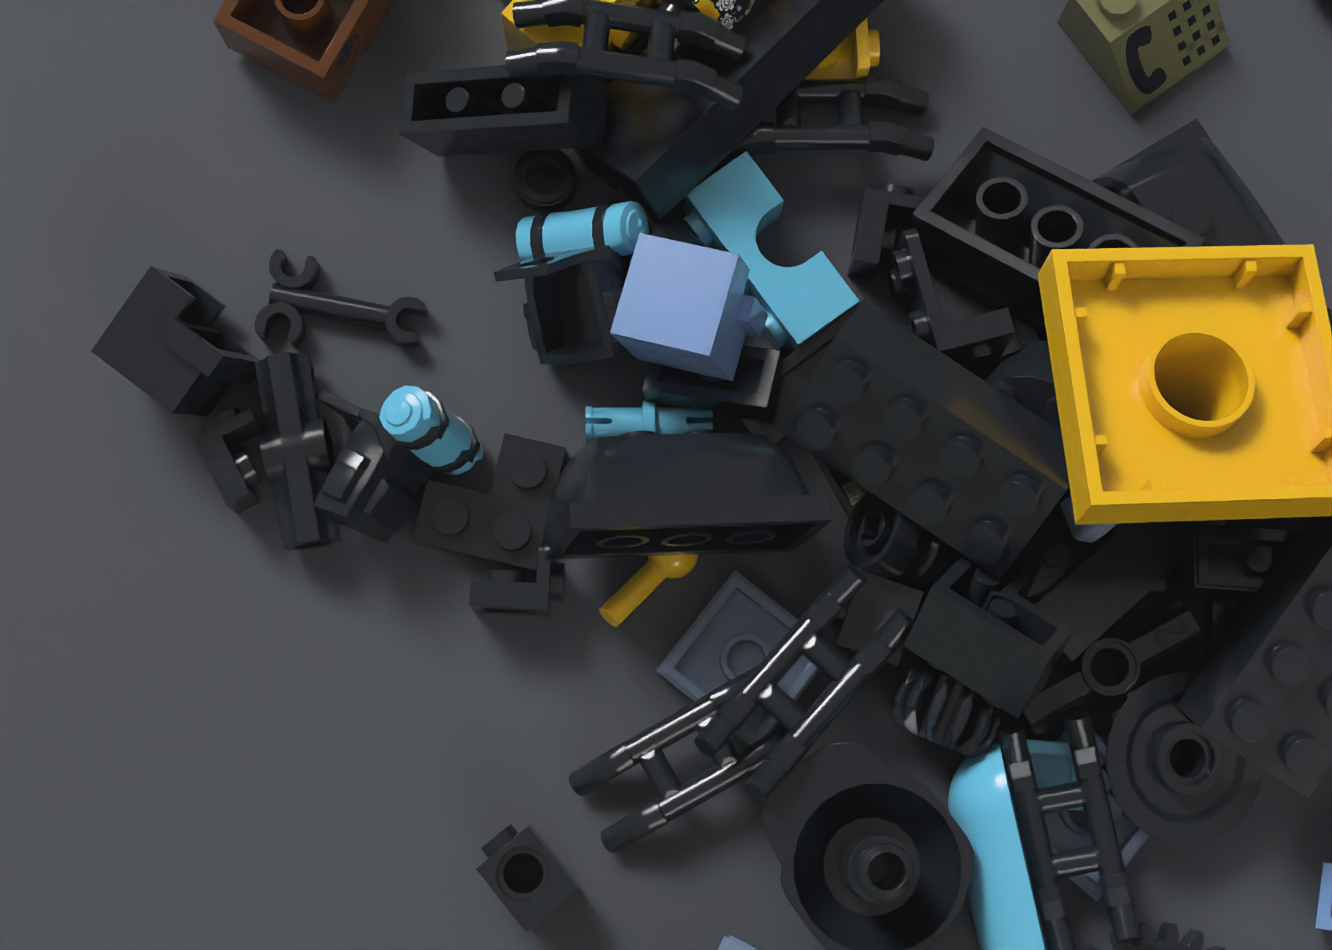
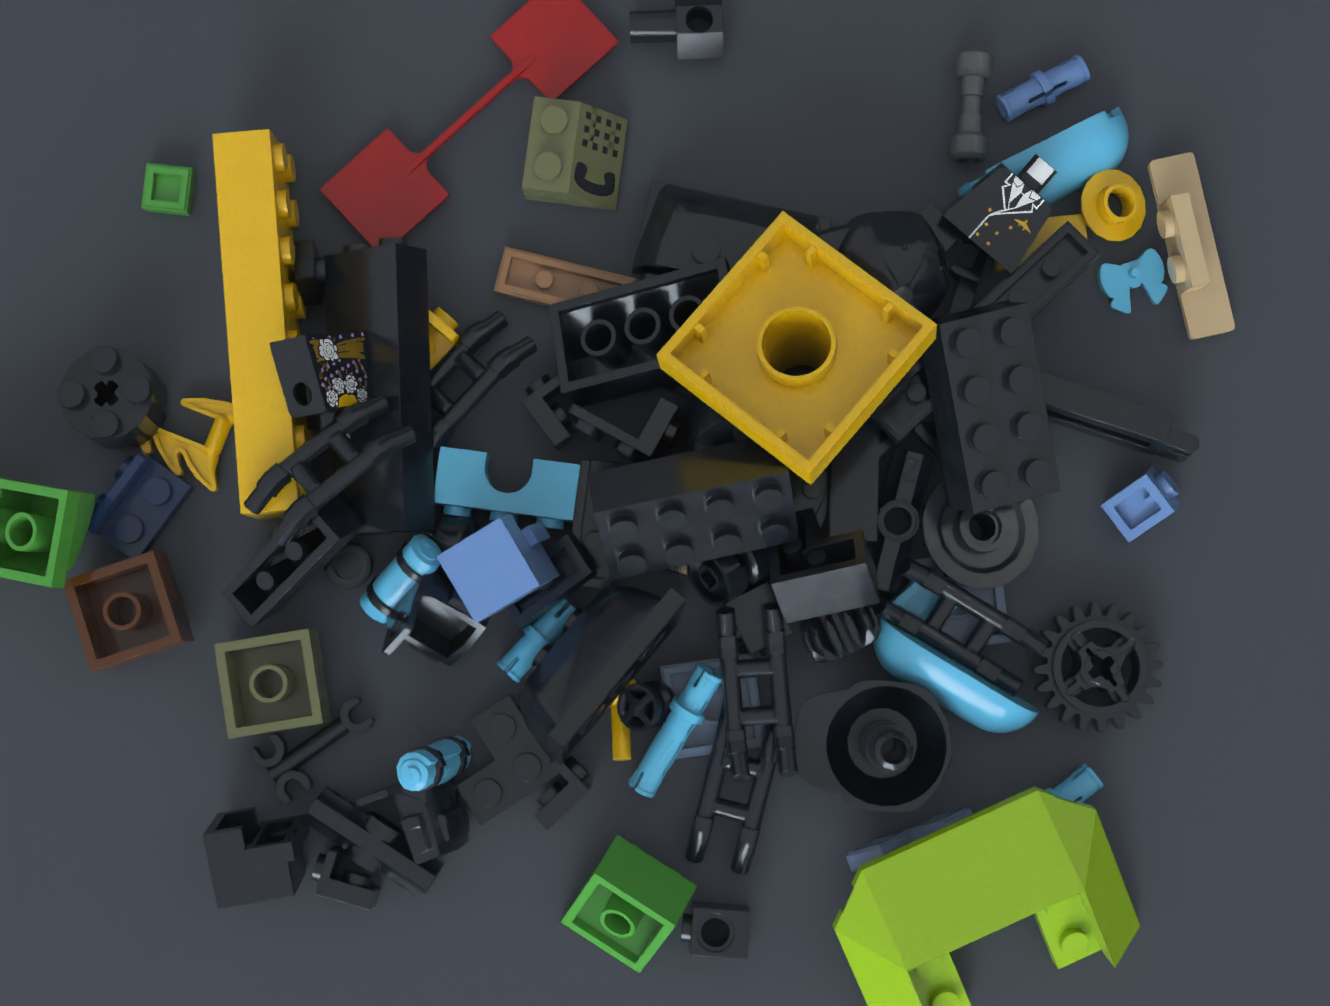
camera: 45 degrees left, 5 degrees up
(363, 206) = (272, 683): none -> olive brick
(470, 759) = (629, 904): none -> bright green slope
(674, 578) = (634, 704): none -> black wheel
(703, 638) = (684, 715): none -> medium azure pin
(996, 99) = (548, 279): none -> medium nougat tile

